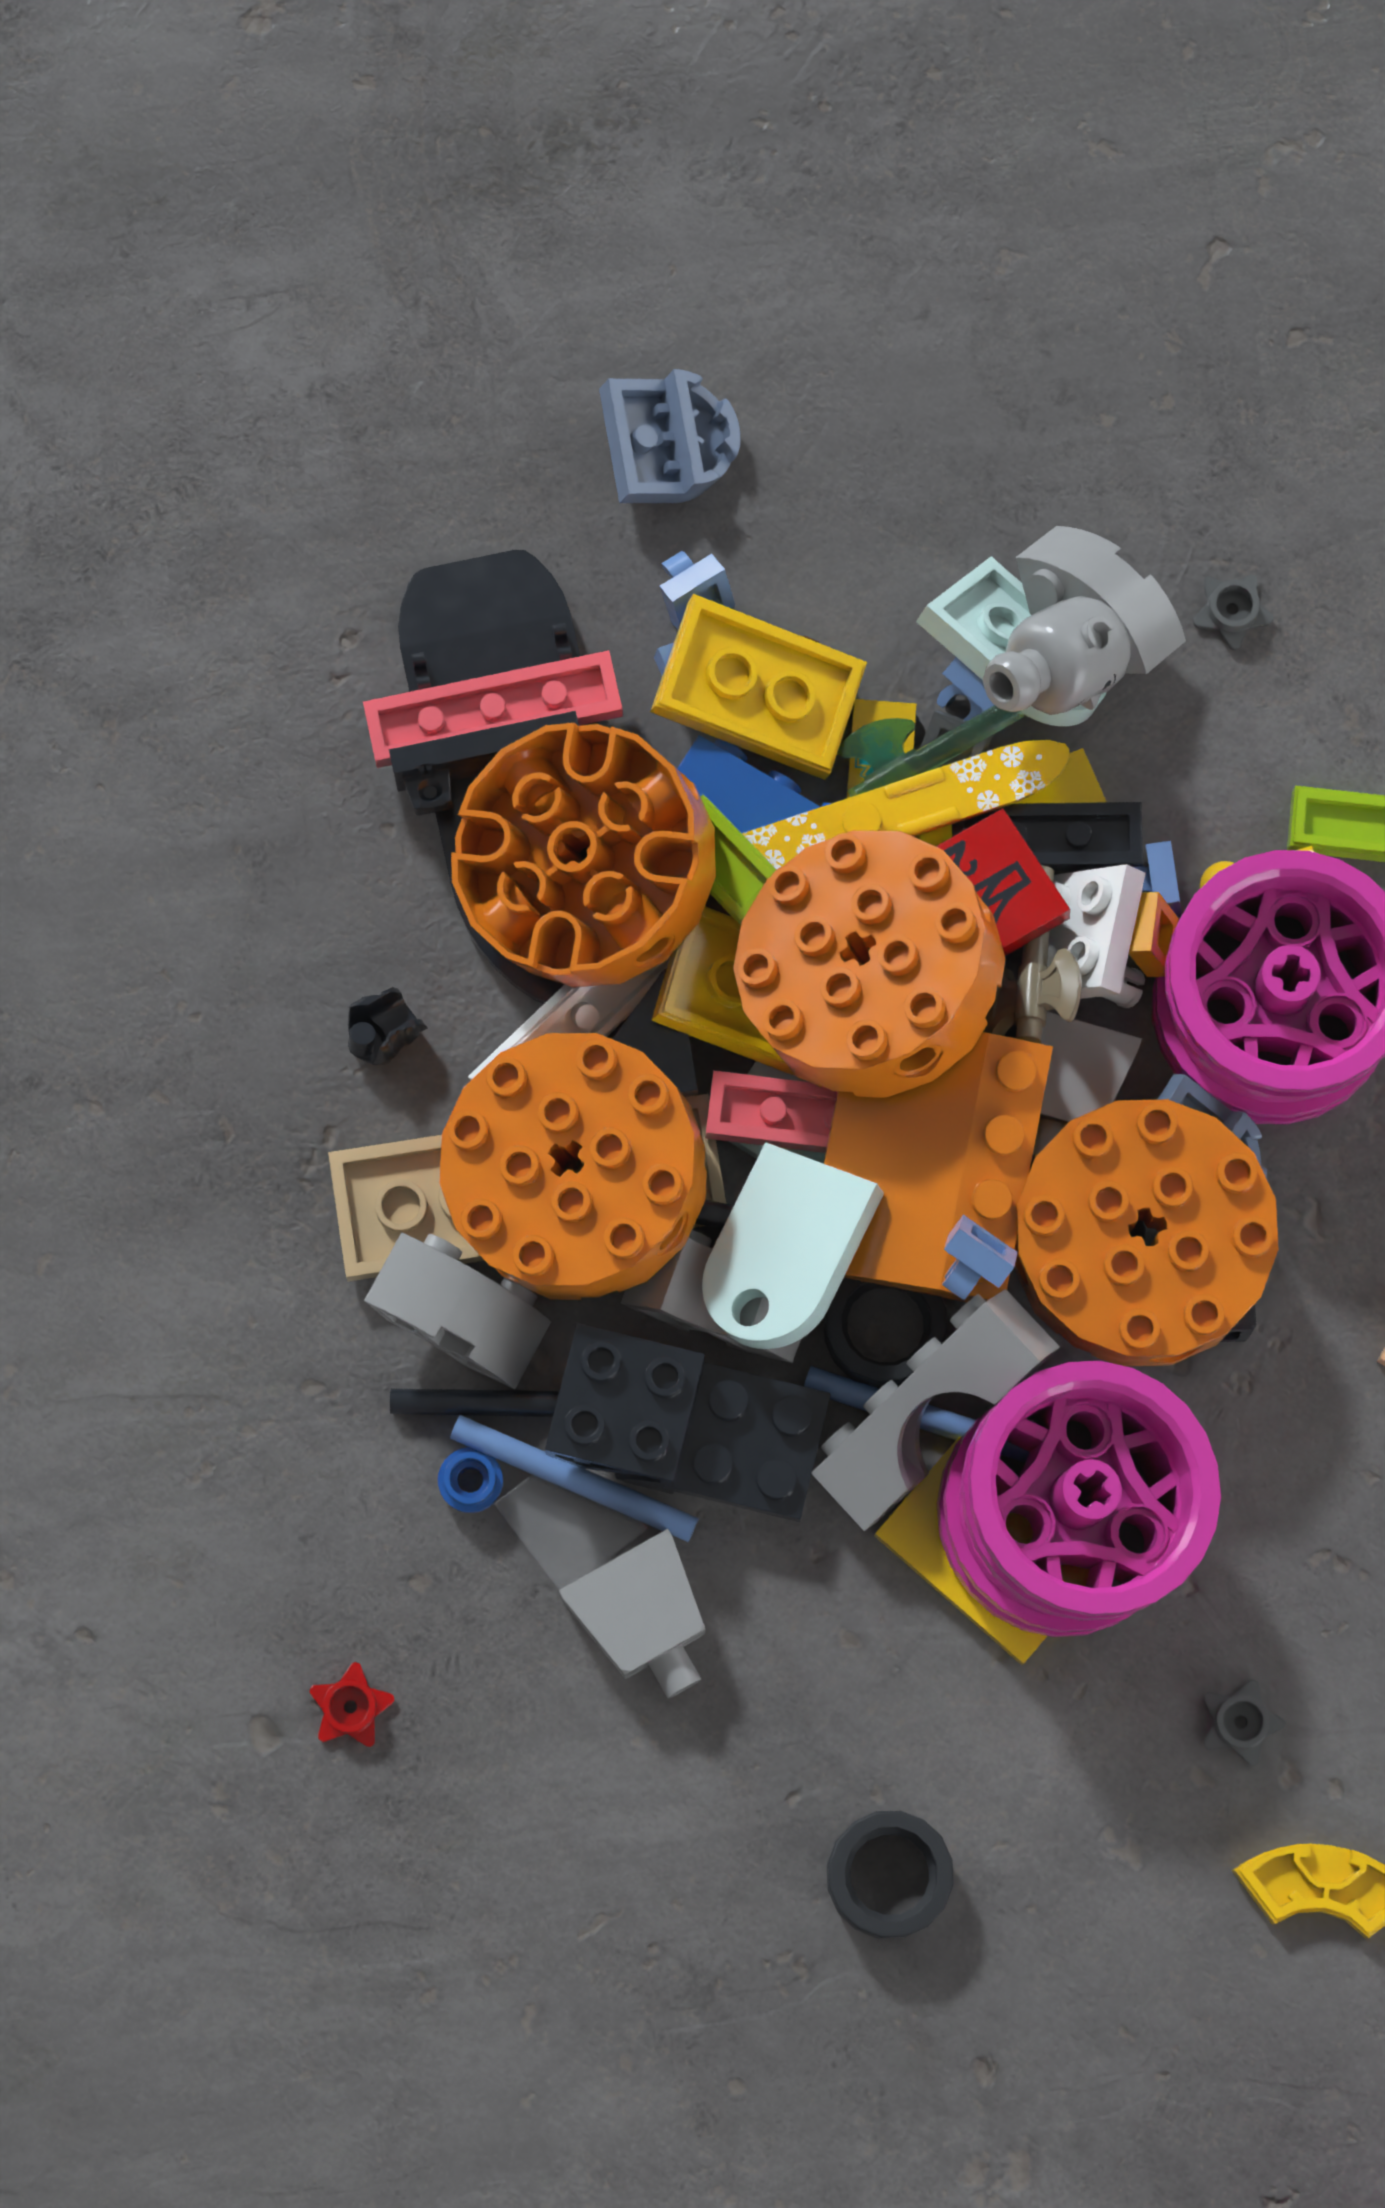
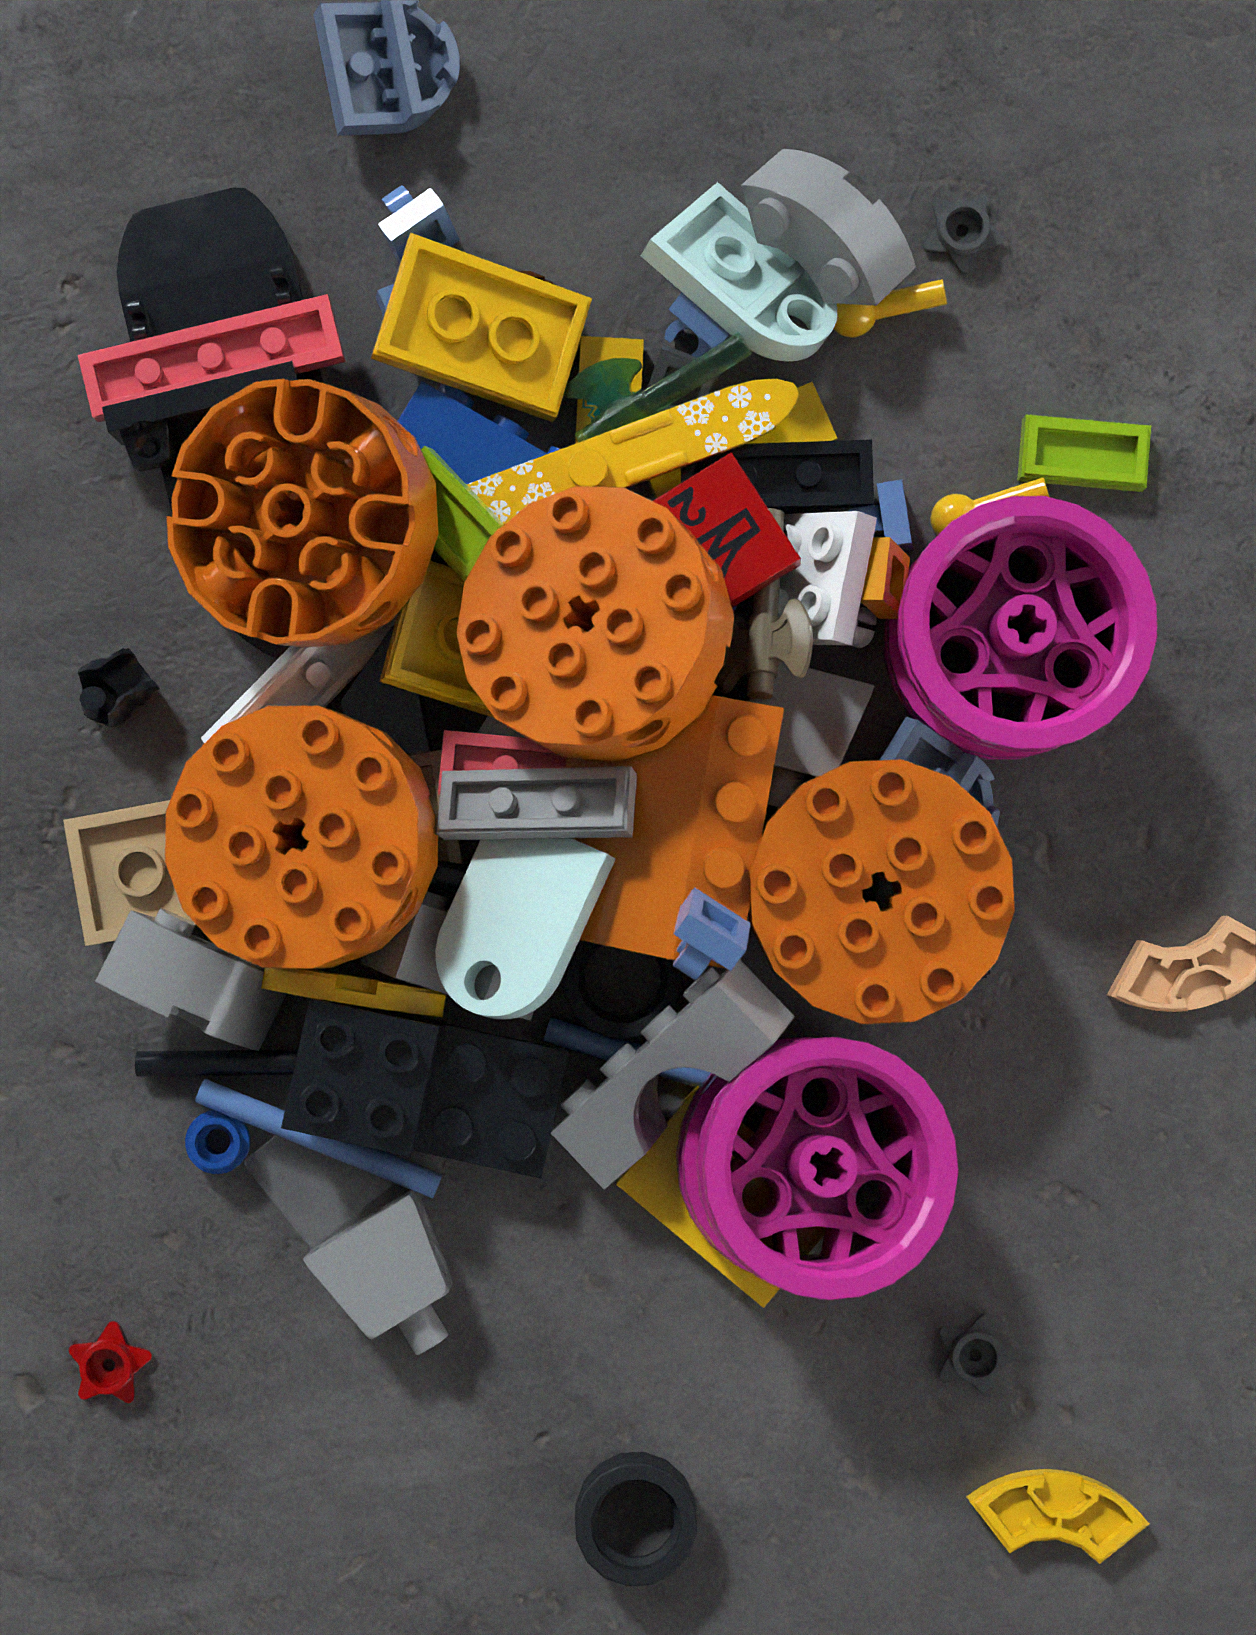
camera: 10 degrees left, 10 degrees up
(564, 1314) = (354, 990): none -> yellow tile
(807, 1137) = (537, 803): none -> light grey tile
(1060, 658) = (787, 294): light grey piece -> none
(1133, 687) = (858, 319): none -> yellow bar

